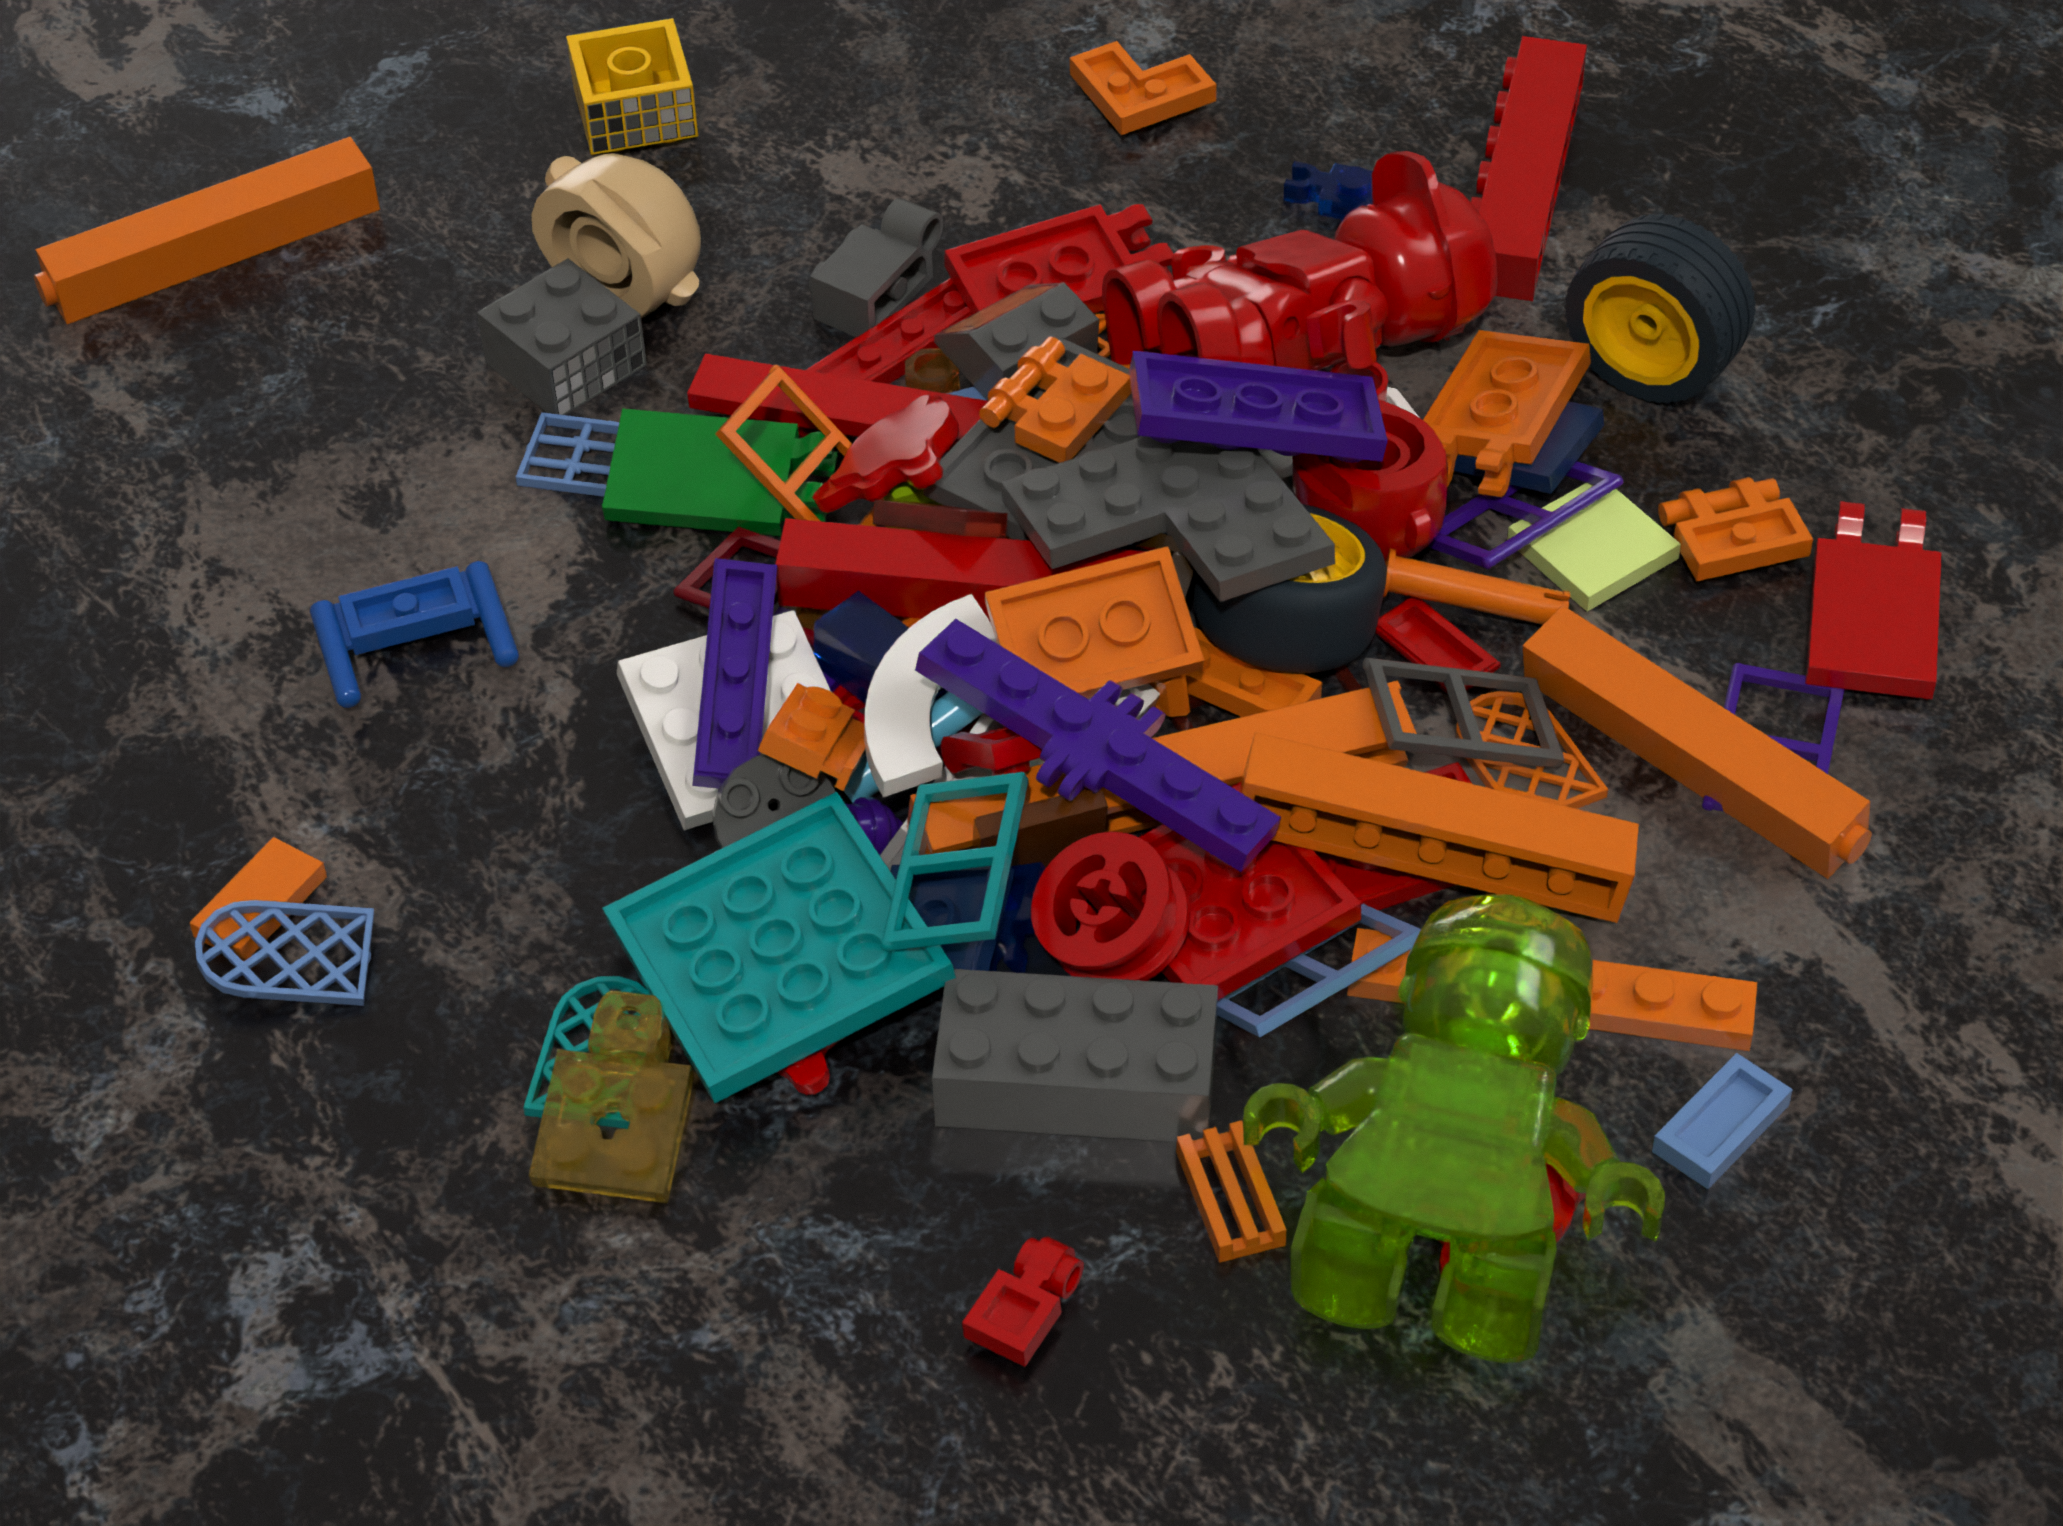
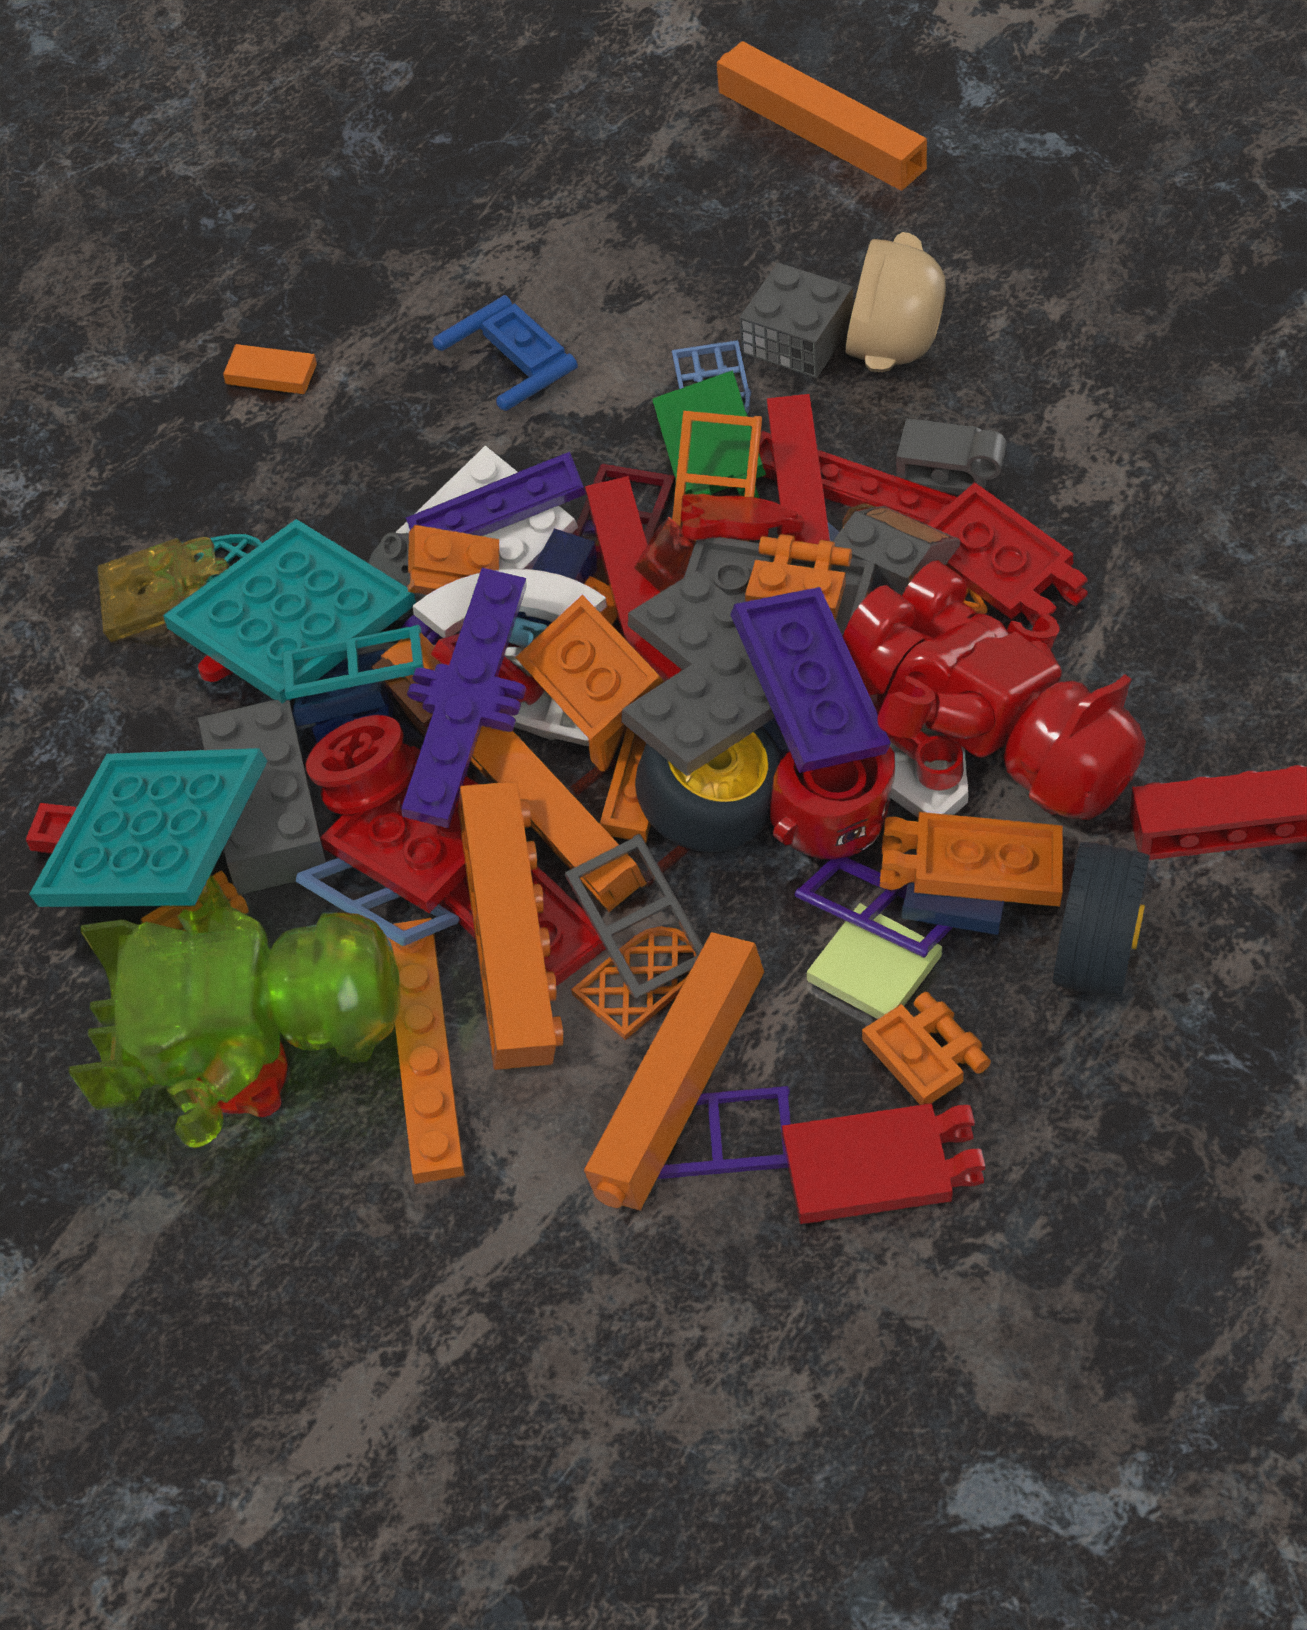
camera: 75 degrees right, 5 degrees up
(279, 910) = (247, 429): medium blue window -> none
(632, 86) = (1065, 258): yellow brick -> none
(1131, 1154) = (149, 829): none -> teal plate
(1140, 97) = (1236, 543): orange plate -> none
(1334, 192) = (1196, 705): clear blue plate -> none
(1430, 639) = (722, 891): red tile -> none
(1472, 590) = (775, 896): orange pin -> none
(1722, 1120) = (338, 1177): medium blue tile -> none

